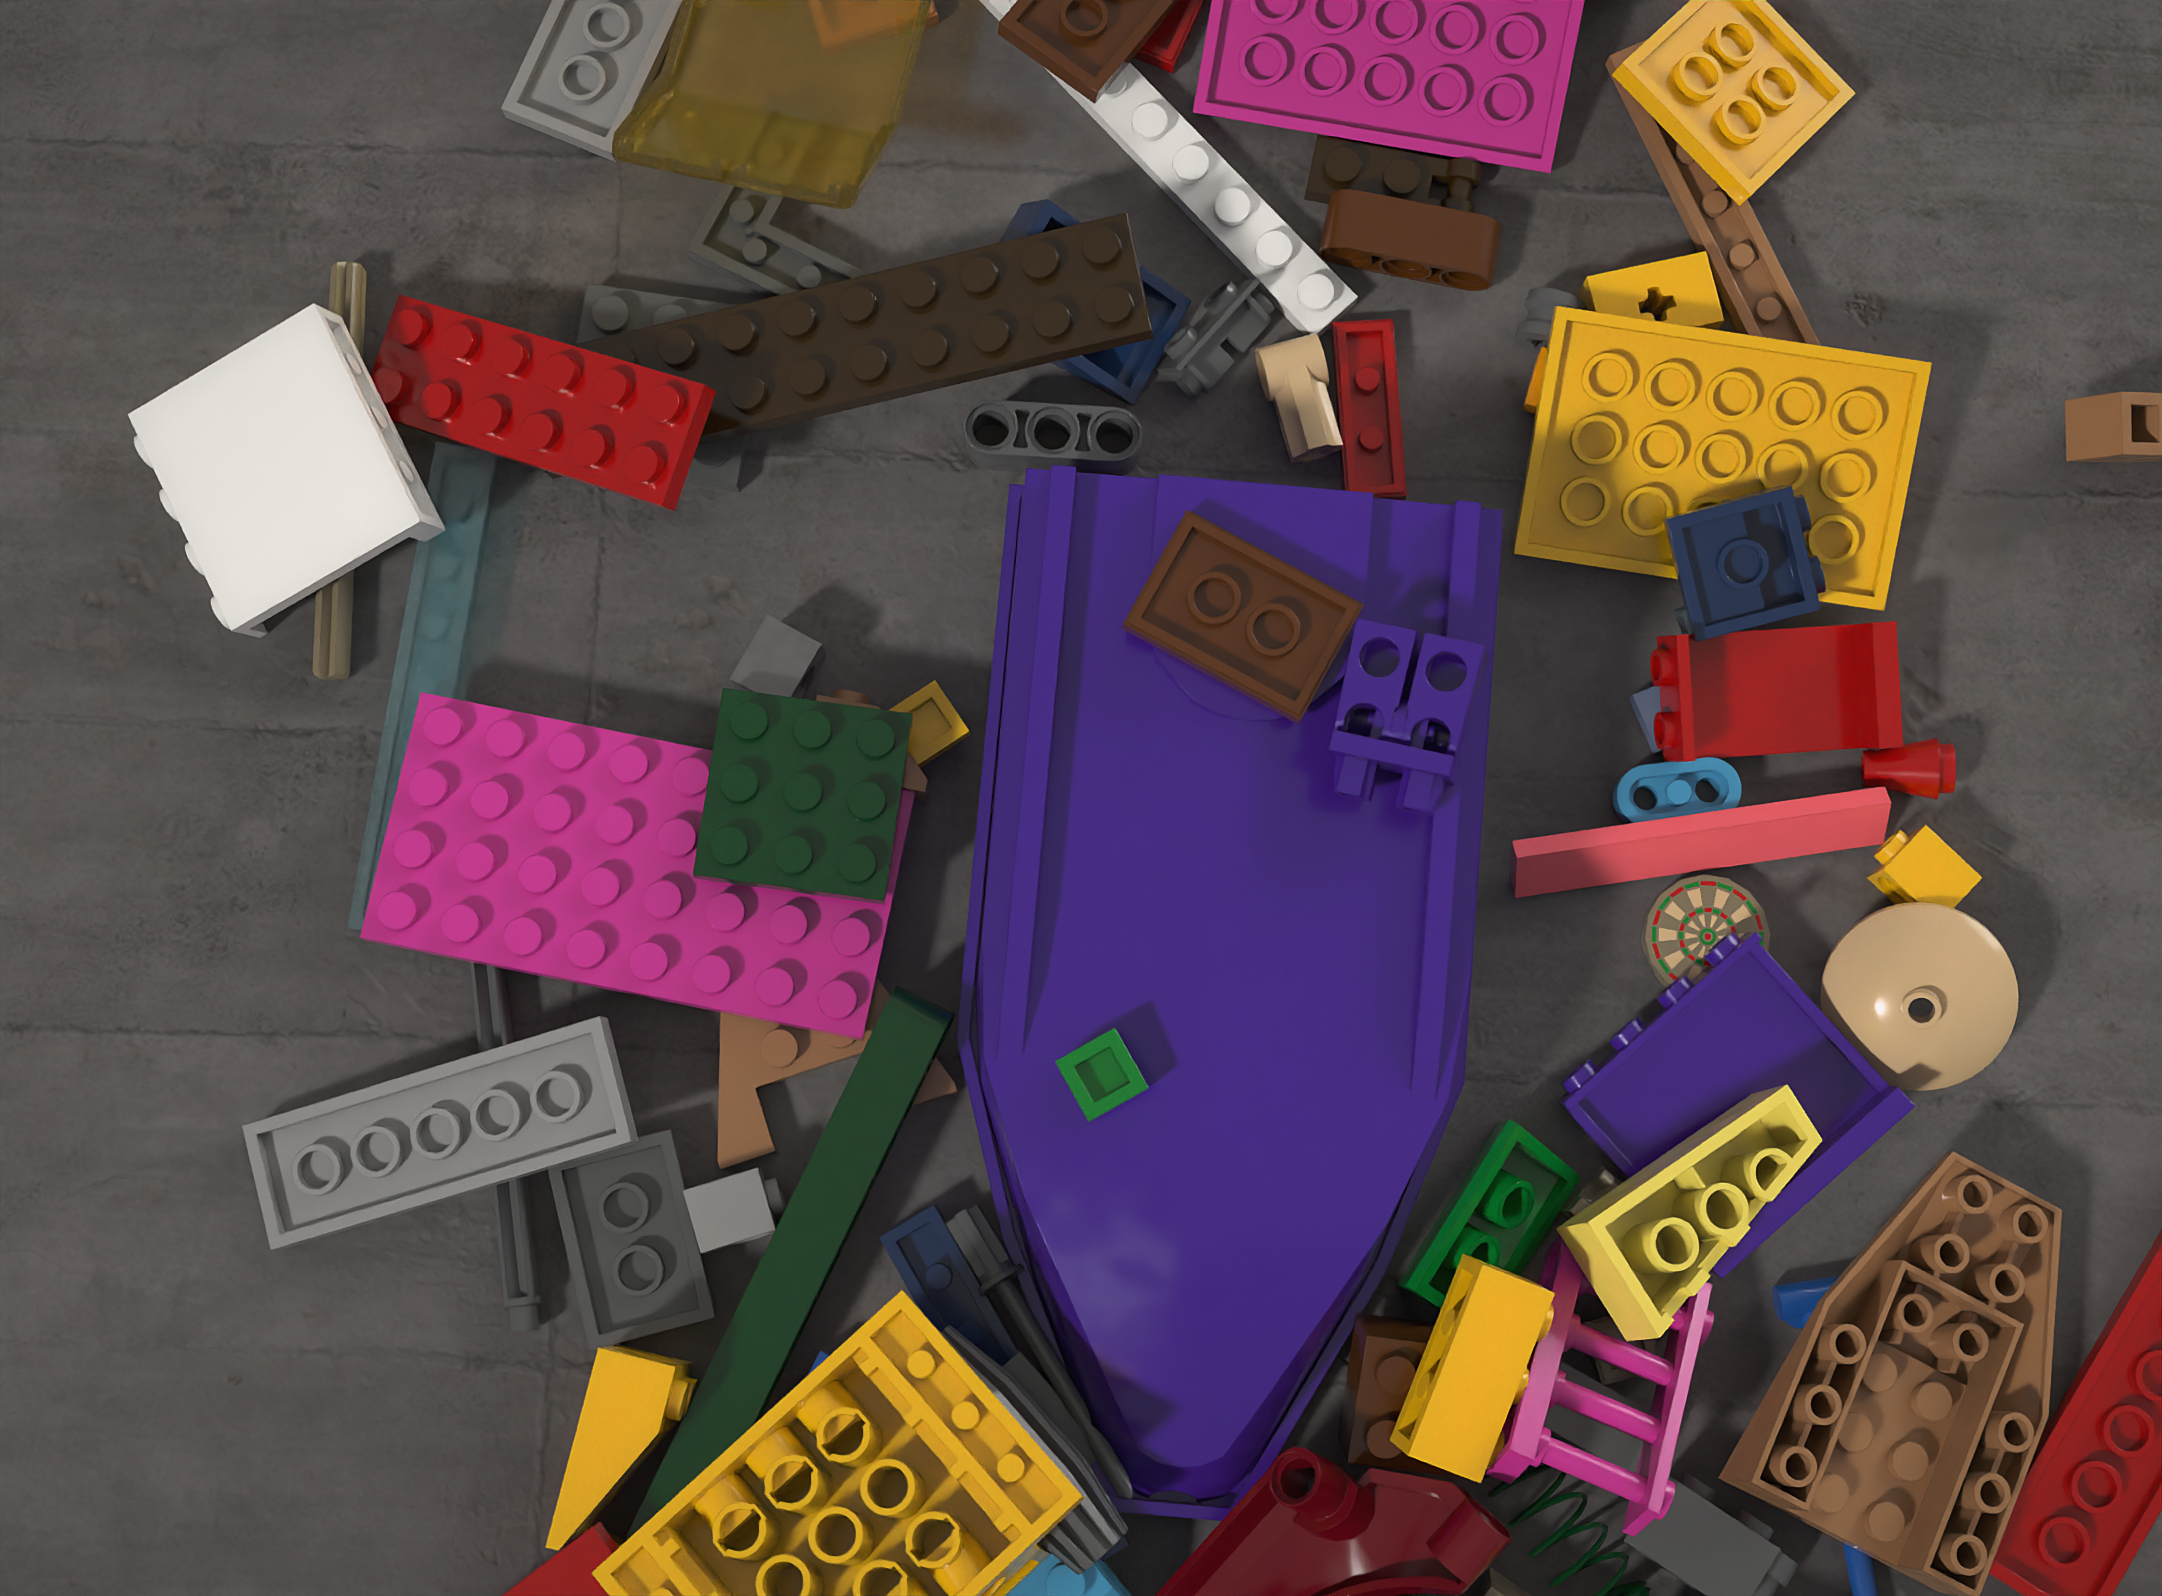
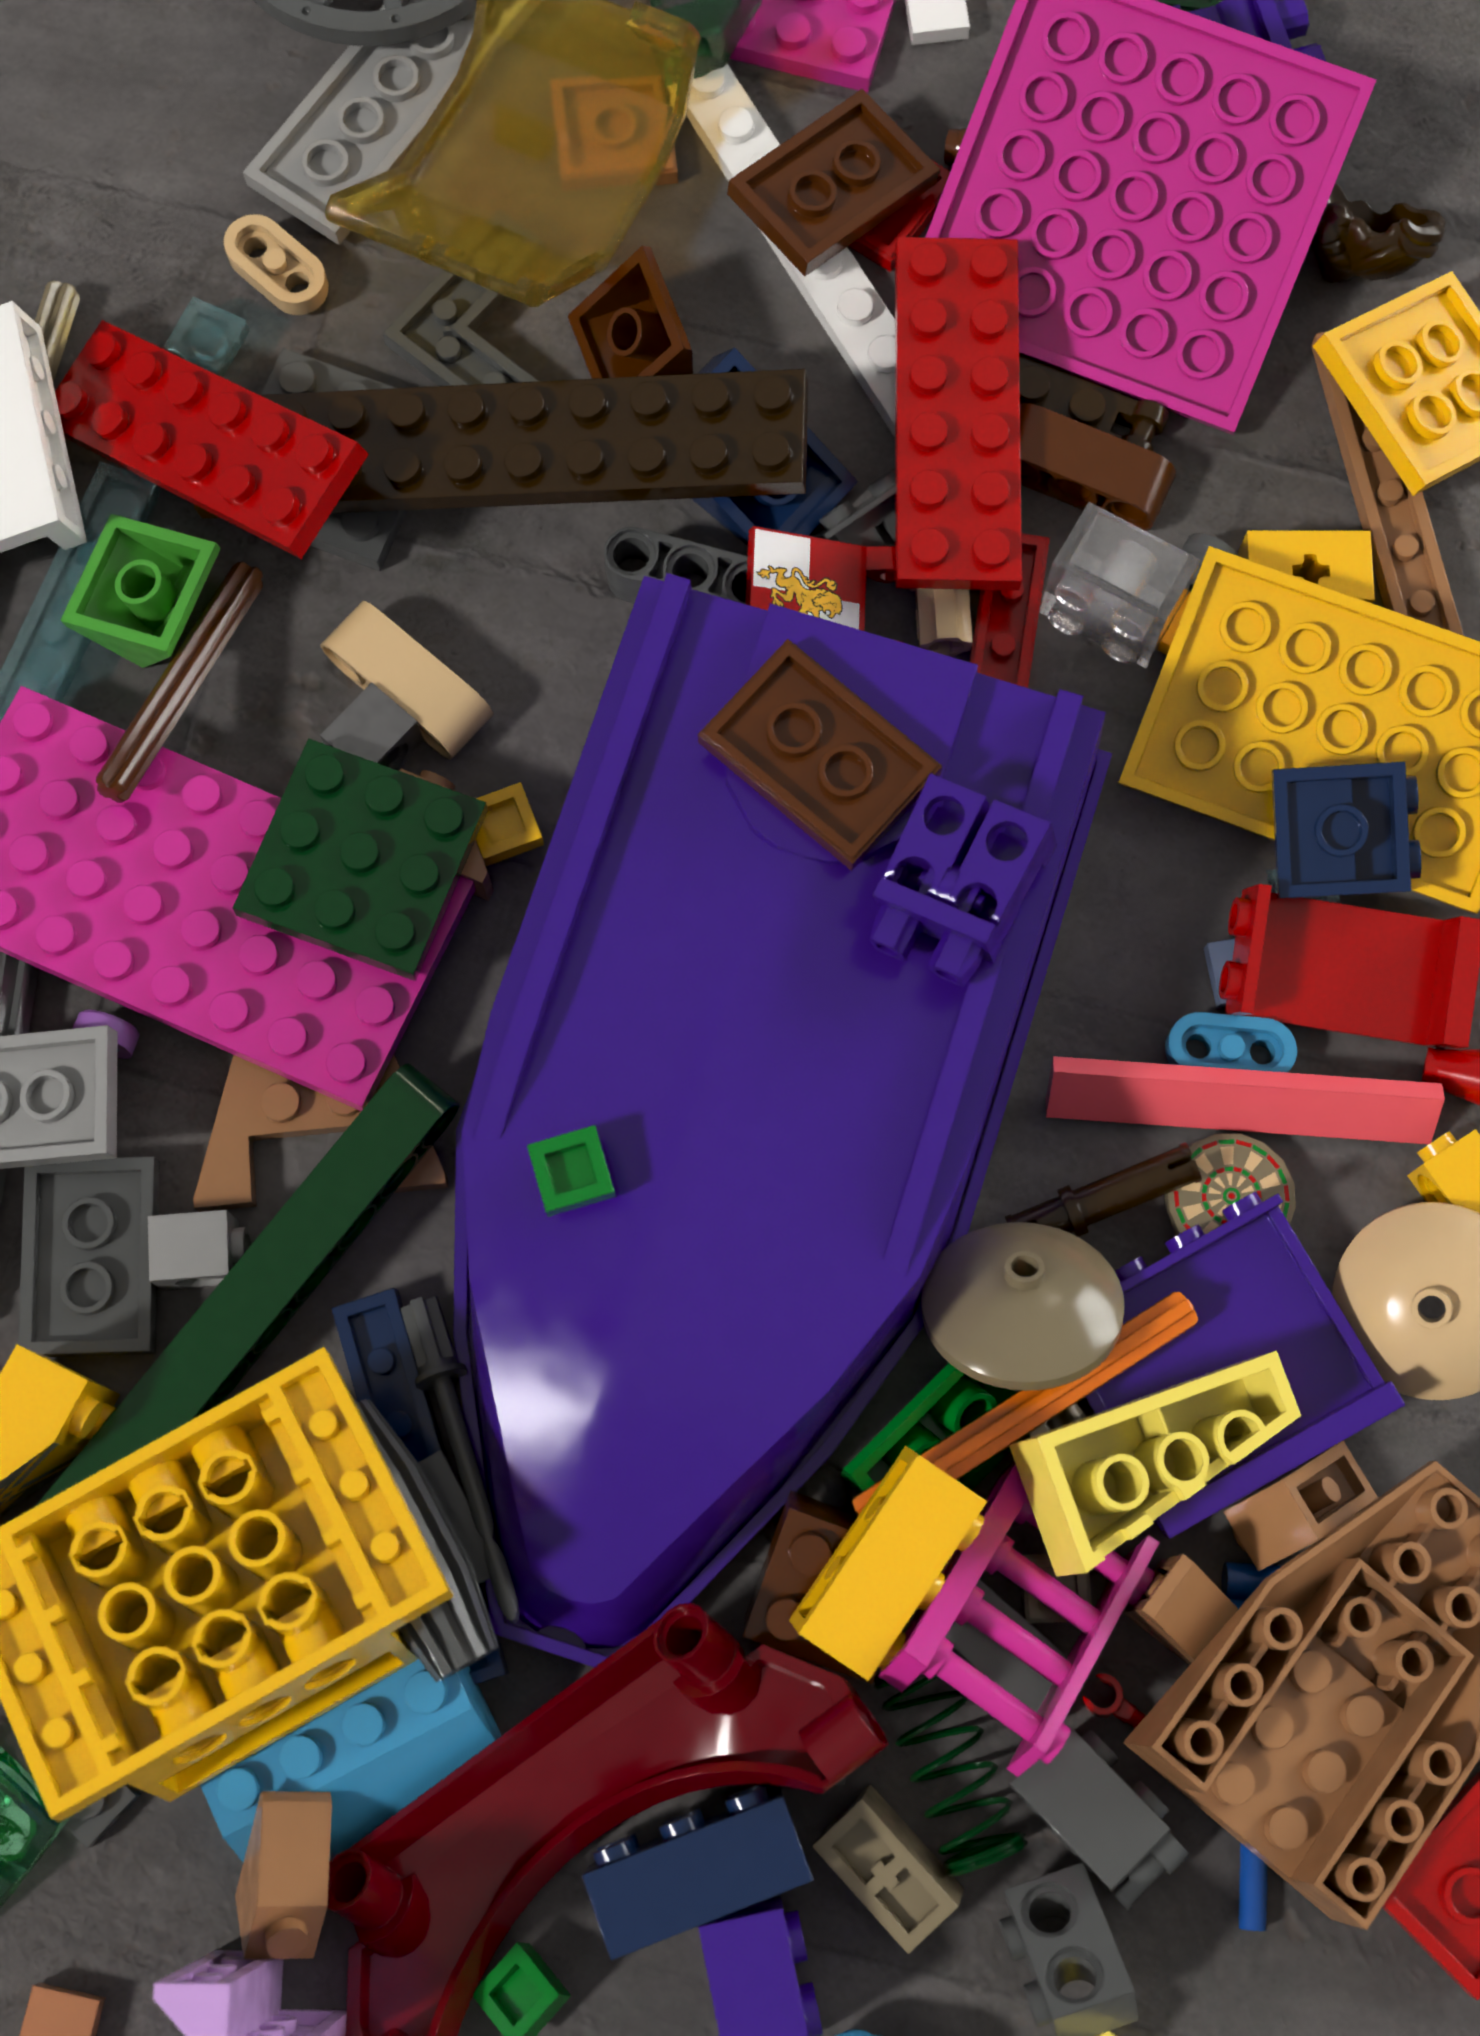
camera: 15 degrees right, 5 degrees down
(508, 289) = (208, 336): none -> clear light blue plate
(513, 567) = (139, 589): none -> bright green slope
(561, 199) = (279, 268): none -> tan plate
(577, 655) = (179, 683): none -> reddish brown axle
(581, 1010) = (127, 1033): none -> medium lavender tile
(777, 585) = (378, 651): none -> tan beam
(935, 195) = (632, 324): none -> reddish brown slope
(1182, 424) = (814, 574): none -> flag
(1279, 216) = (957, 414): none -> red plate
(1474, 361) = (1117, 586): none -> clear brick
(1548, 1118) = (1020, 1328): none -> dark tan dish
(1584, 1166) = (1032, 1408): none -> orange axle
(1587, 967) = (1114, 1193): none -> dark brown pin
(1707, 1443) = (1120, 1708): none -> red hand
(1746, 1340) = (1181, 1608): none -> medium nougat slope
(1835, 1222) = (1300, 1506): none -> medium nougat slope

